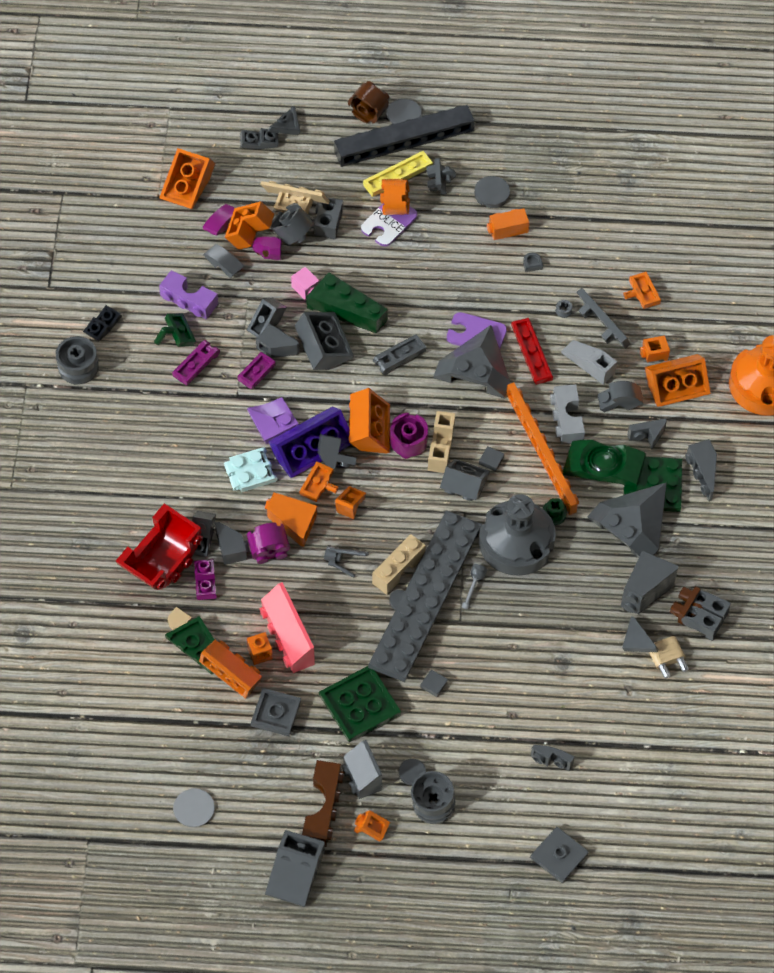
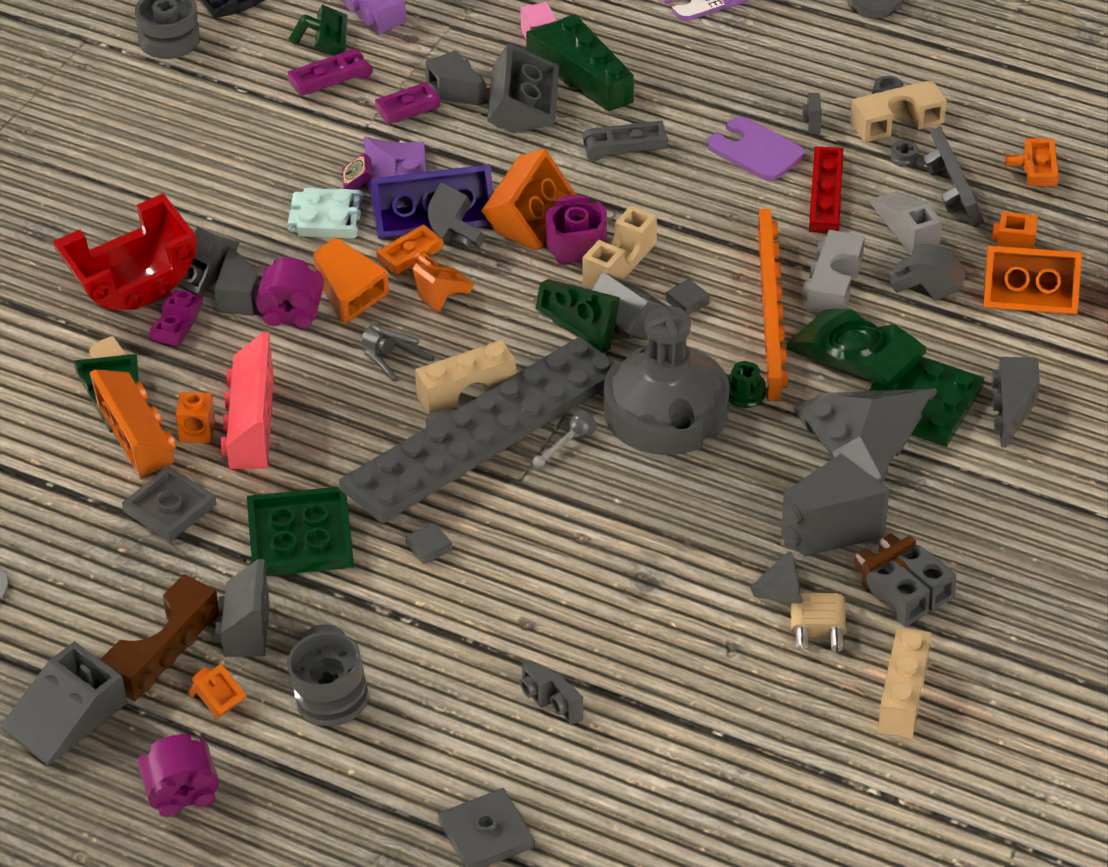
camera: 25 degrees right, 15 degrees down
(255, 435) = (357, 172): none -> tile
(268, 312) = (466, 38): dark grey slope -> none
(385, 888) = (178, 774): none -> magenta brick
(440, 494) = (580, 311): none -> dark green wing
(477, 362) = (737, 177): dark grey wedge -> none
(500, 298) = (812, 113): none -> dark grey plate
(508, 224) = (875, 35): orange brick -> none
(556, 269) = (917, 102): none -> tan arch
(652, 430) = (954, 327): dark grey slope -> none
(736, 690) = (904, 682): none -> tan arch

